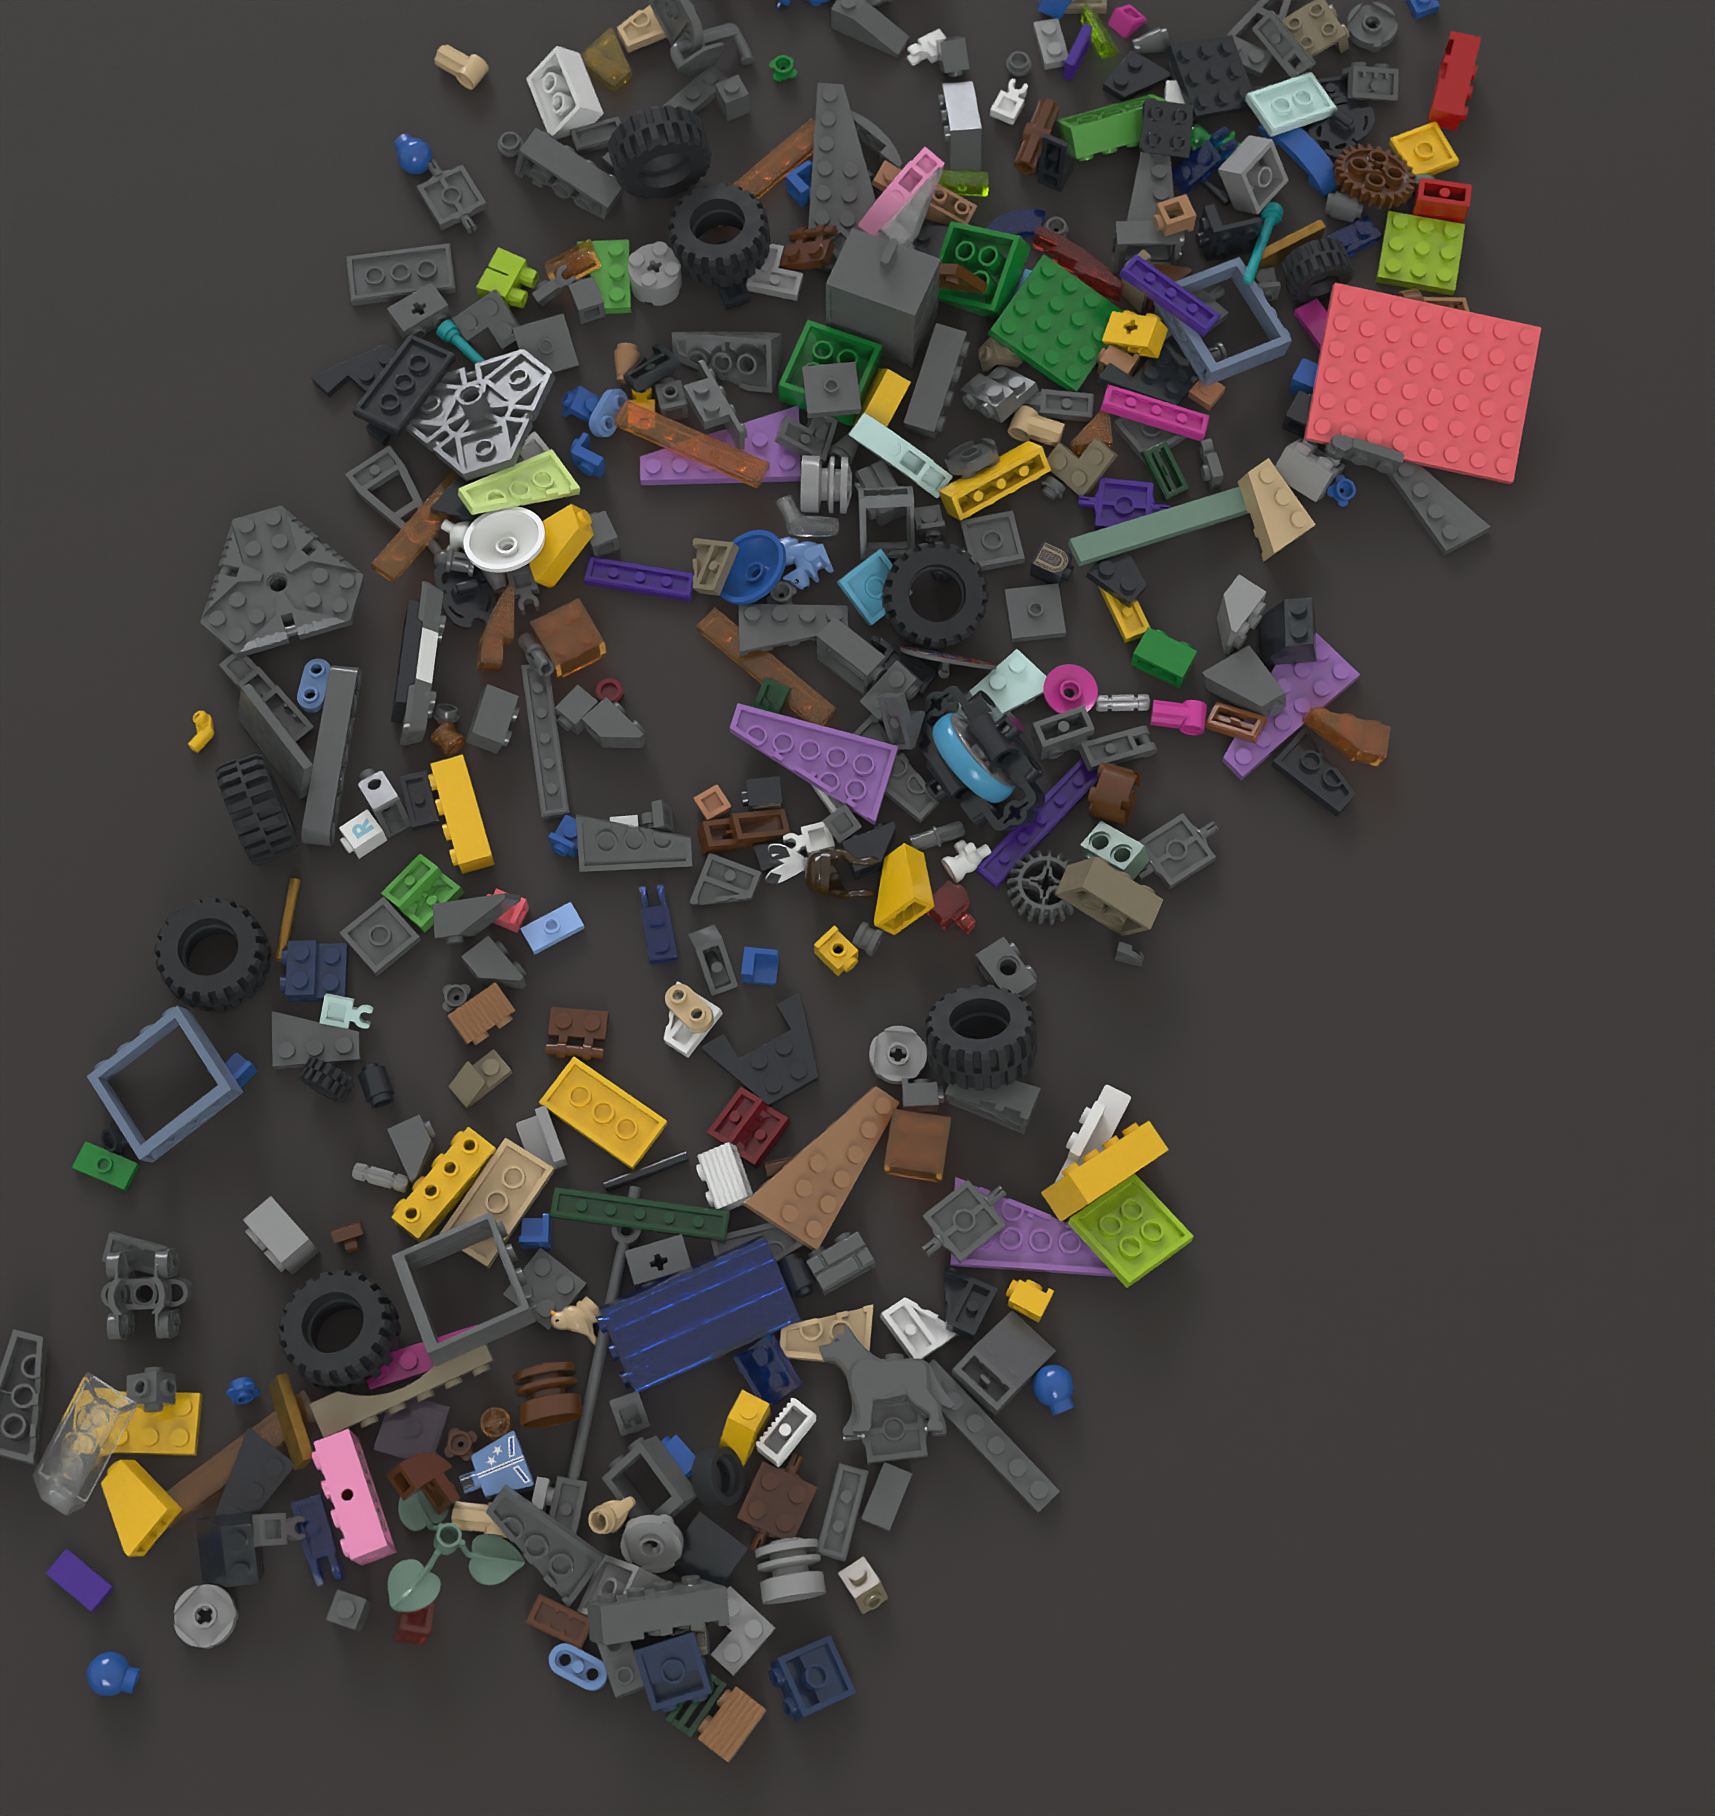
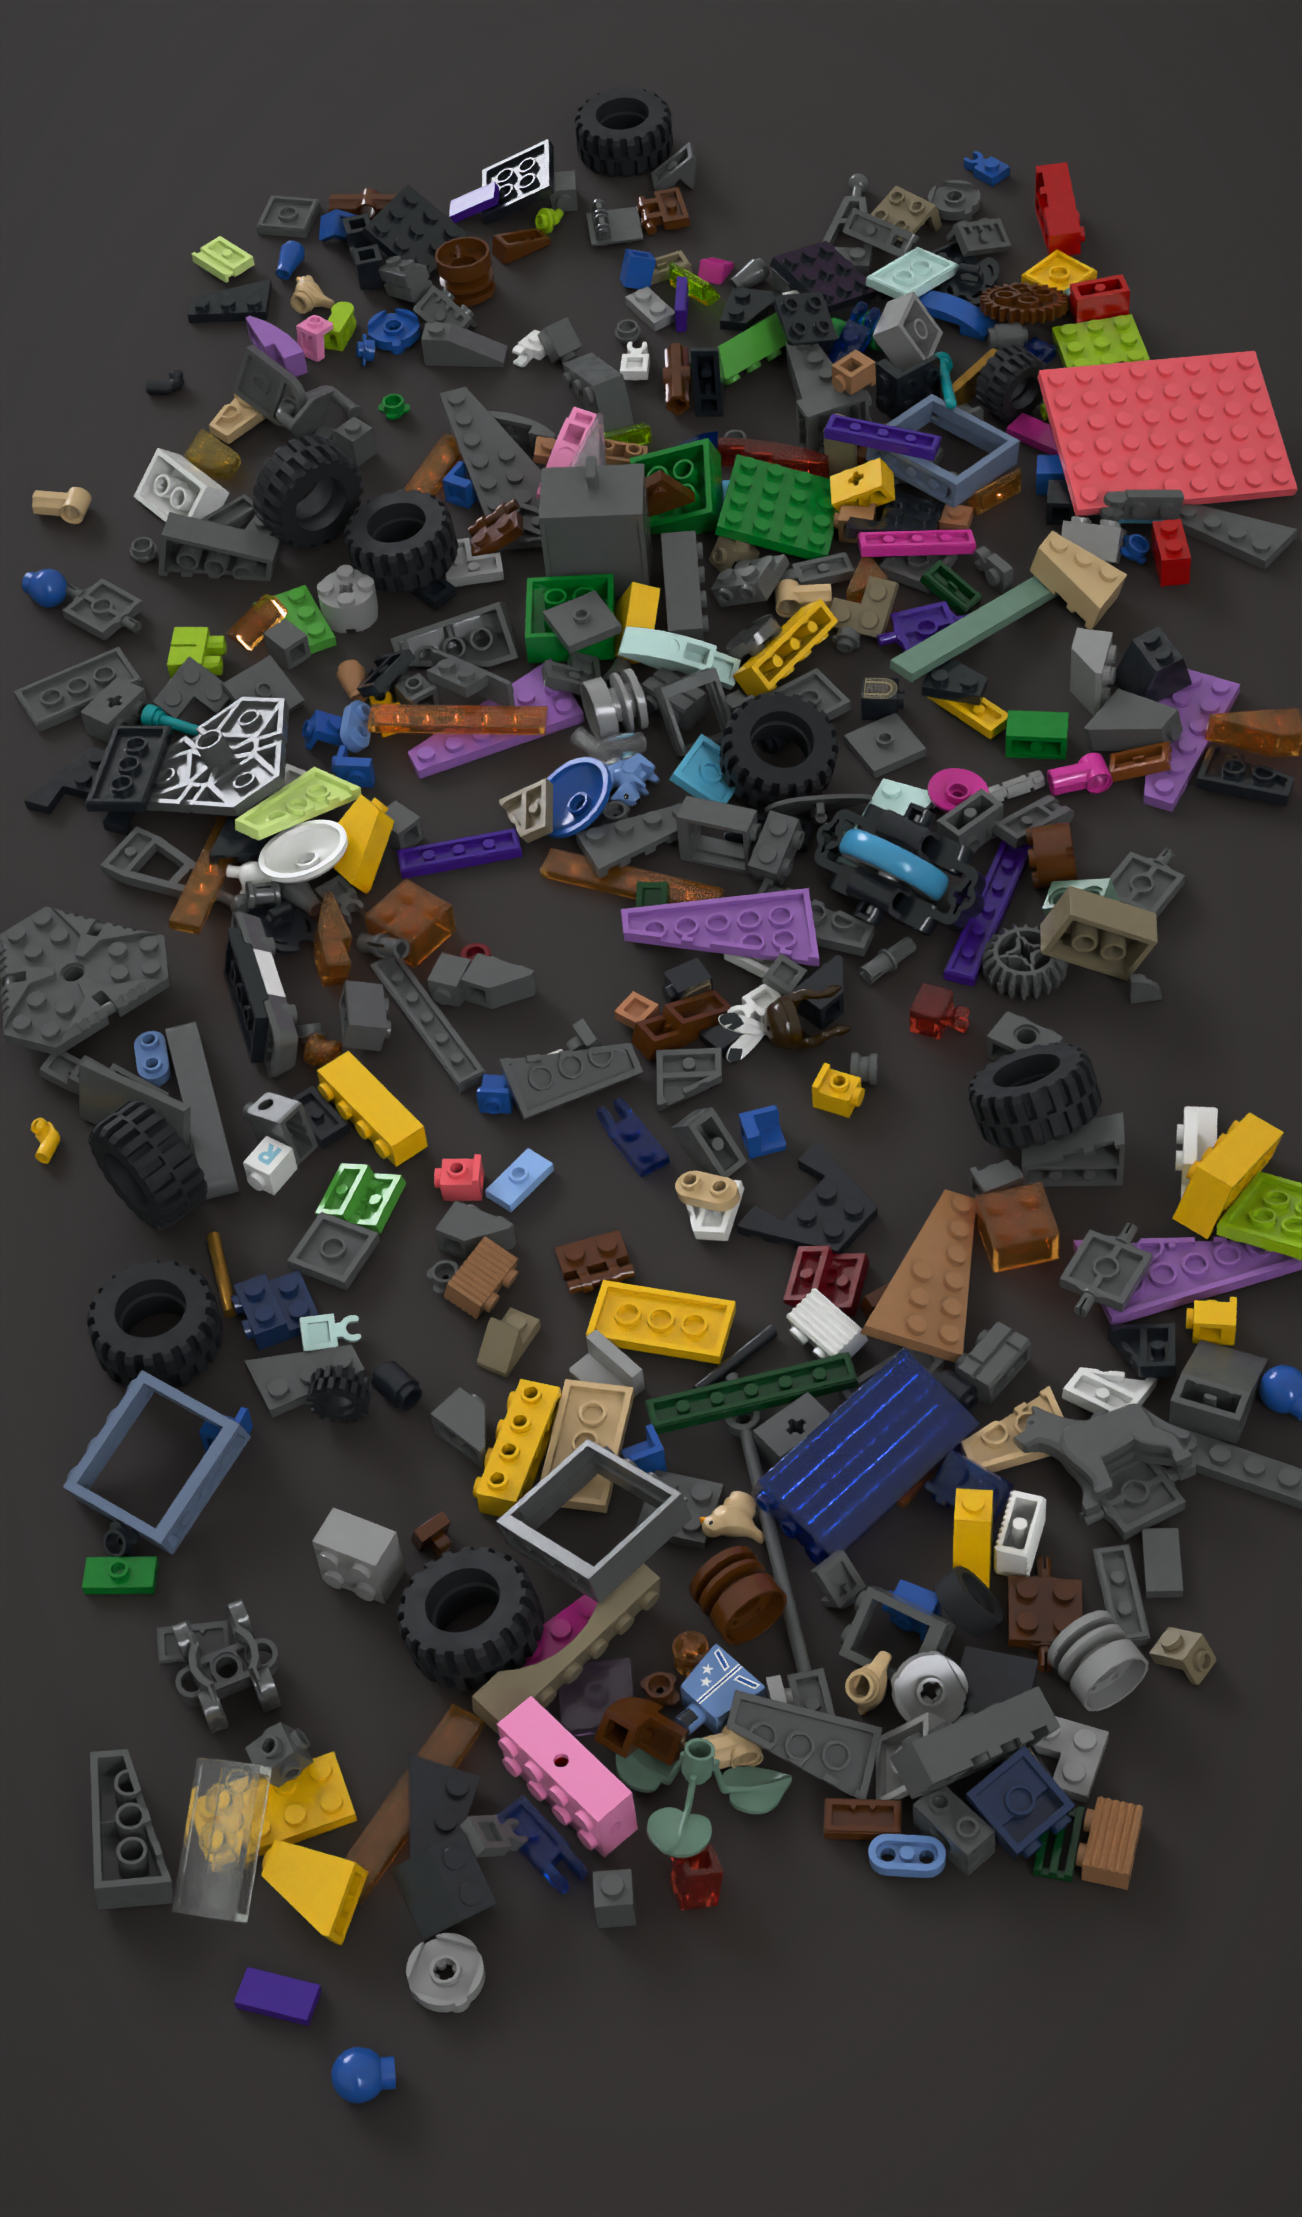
camera: 15 degrees left, 20 degrees down
(242, 1390) = (383, 1729): blue plate -> none
(290, 1421) = (456, 1731): pearl gold tile -> none
(380, 1177) = (442, 1471): light grey axle -> none
(469, 916) = (427, 1187): dark grey slope -> none
(548, 290) = (243, 648): dark grey plate -> none
(811, 1679) = (1176, 1763): dark blue plate -> none
(886, 1043) = (947, 1174): light grey plate -> none
(900, 722) = (797, 863): dark grey slope -> none
(903, 890) = (879, 1011): yellow slope -> none
(965, 861) = (928, 968): white piece -> none
(1252, 379) = (995, 492): none -> clear orange slope
(1368, 509) = (1170, 552): none -> red brick

